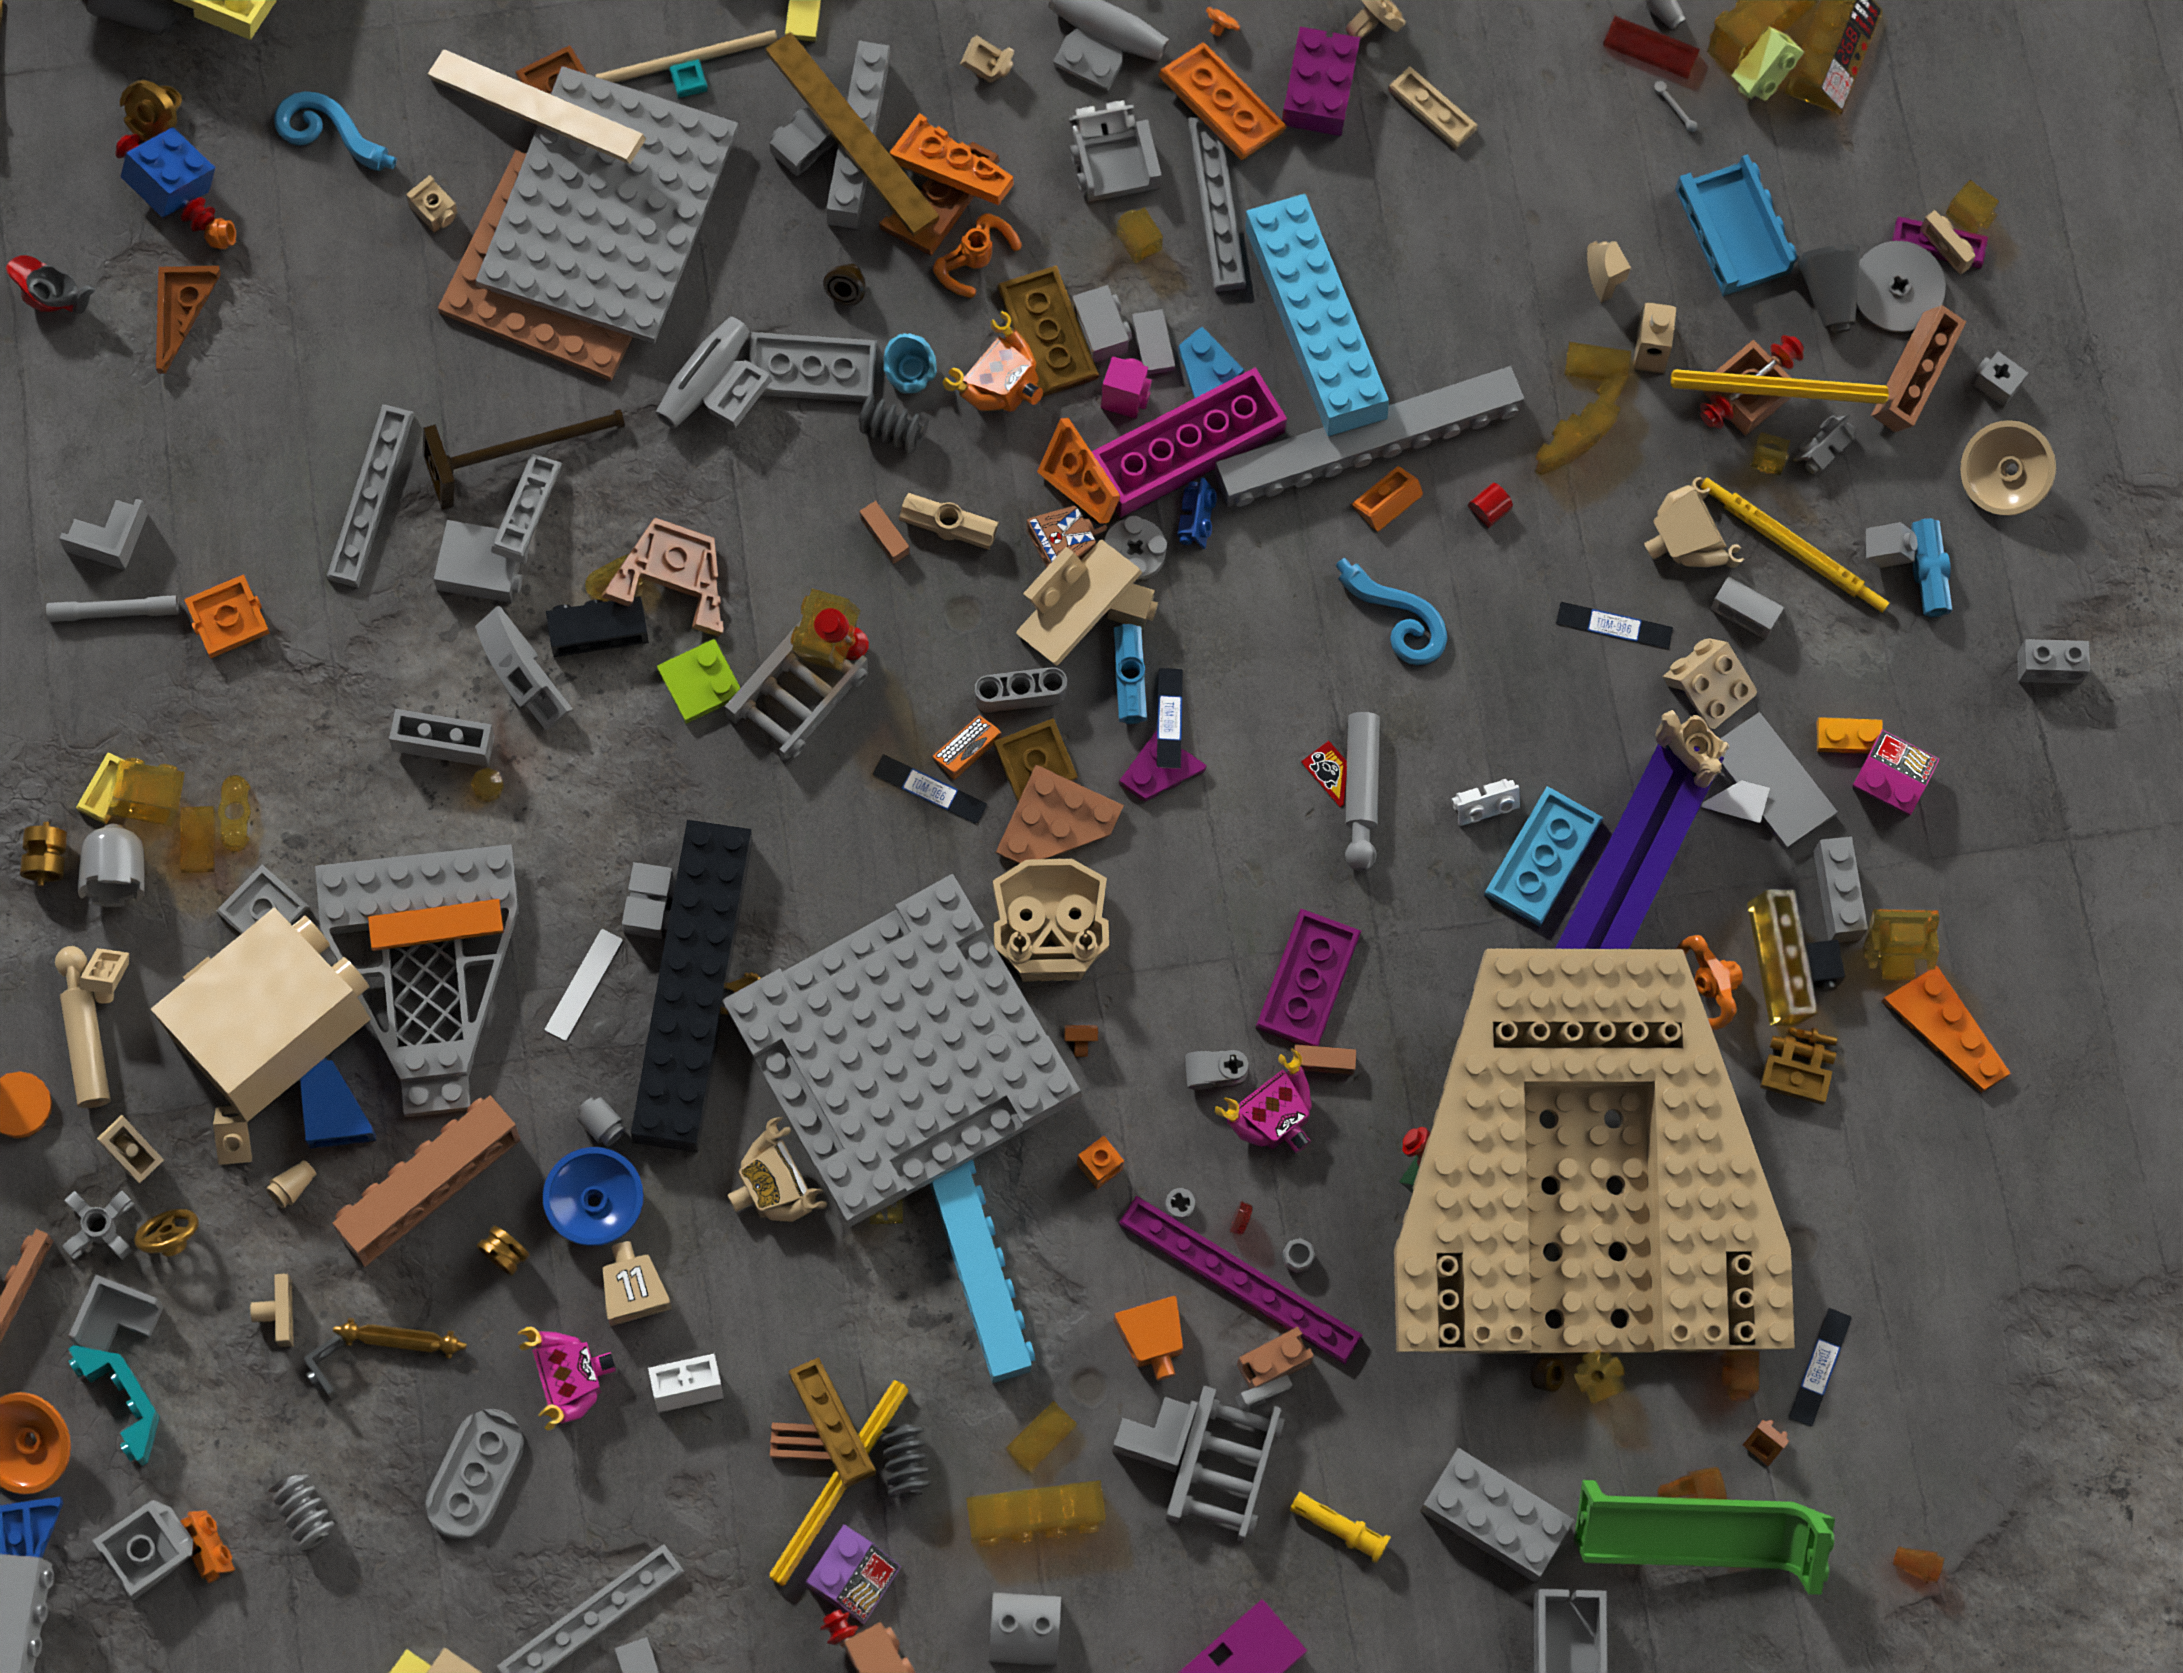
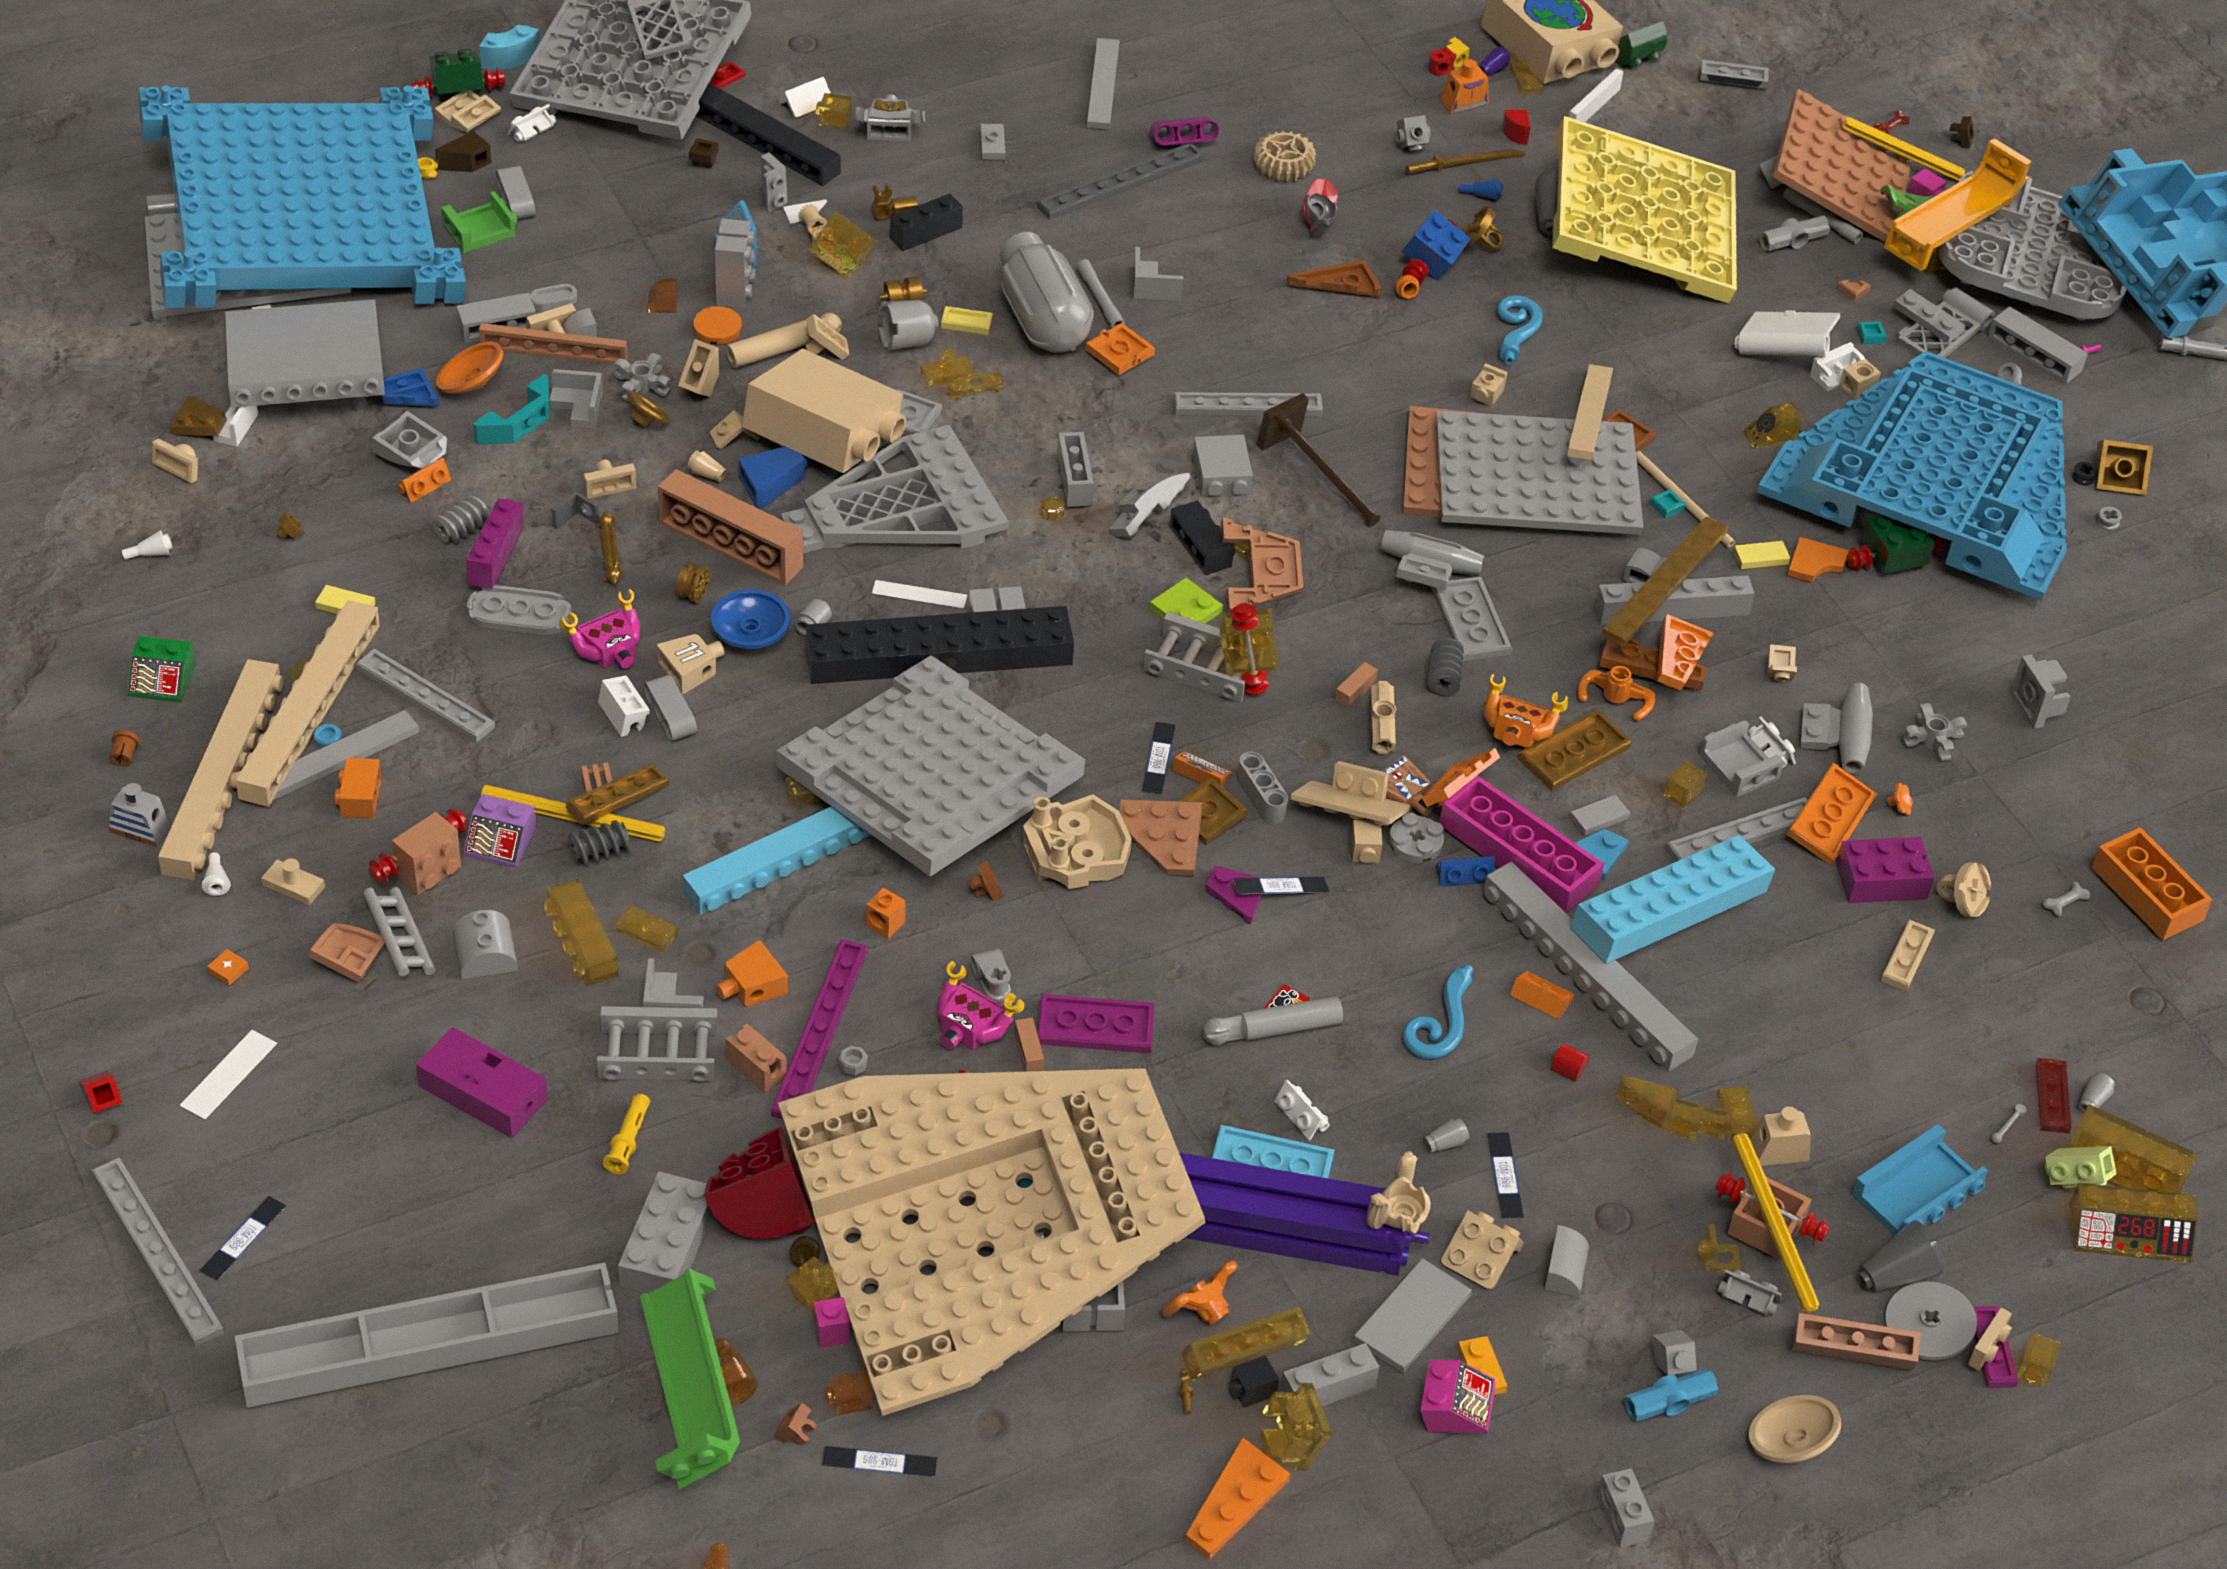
camera: 75 degrees right, 25 degrees down
(64, 69) = (1489, 189): none -> blue cone
(122, 678) = (1044, 294): none -> light grey piece
(145, 792) = (966, 323): clear yellow brick -> none
(365, 1478) = (495, 543): none -> magenta brick
(435, 924) = (928, 491): orange tile -> none
(526, 507) = (1274, 474): light grey plate -> none
(703, 1328) = (670, 707): none -> light grey beam
(773, 1180) = (800, 715): tan torso -> none
(845, 284) = (1548, 618): dark brown brick -> none
(909, 363) = (1502, 661): medium azure hair -> none
(1101, 323) = (1596, 775): light grey brick -> none
(1126, 387) = (1547, 791): dark pink brick -> none
(1130, 691) = (1307, 852): dark azure piece -> none
(1185, 1195) = (871, 969): light grey bush -> none
(1241, 1218) = (871, 1014): clear red tile -> none
(1256, 1396) = (723, 1053): light grey tile -> none
(1468, 1399) = (761, 1190): none -> dark red brick
(1559, 665) = (1448, 1135): none -> light grey cone
(1606, 268) = (1823, 1085): tan slope -> none
(1651, 1370) = (831, 1322): none -> dark pink brick
(1690, 531) = (1614, 1199): tan torso -> none
(1740, 800) = (1382, 1292): white sticker -> none
(1795, 545) = (1642, 1289): yellow axle -> none
(1796, 1078) = (1139, 1384): pearl gold plate -> none
(2000, 389) = (1885, 1410): light grey brick -> none

